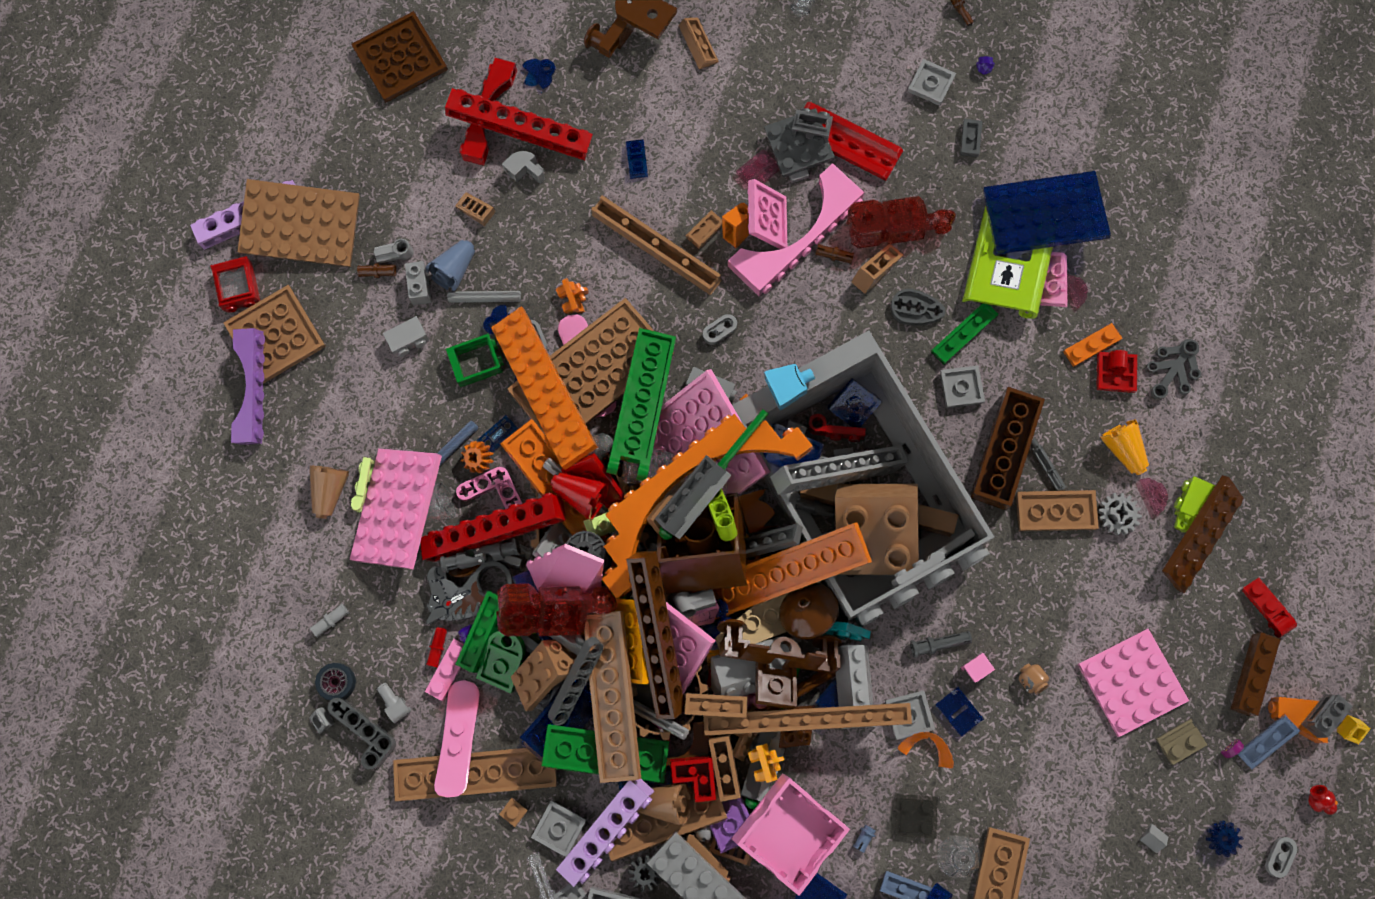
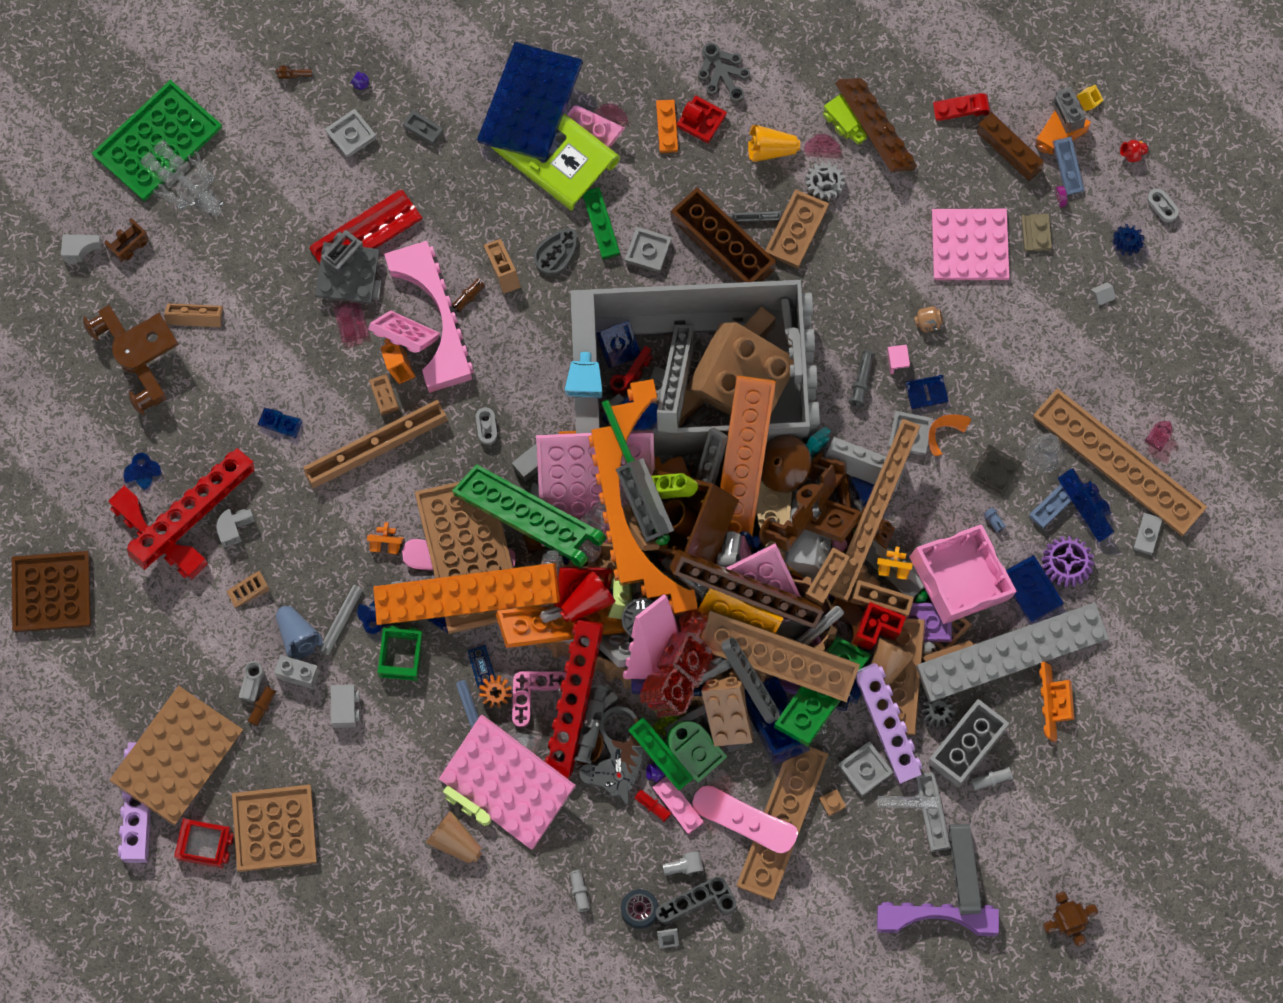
camera: 65 degrees left, 5 degrees down
(248, 423) = (354, 887): medium lavender arch -> none
(894, 221) = (468, 229): clear red brick -> none

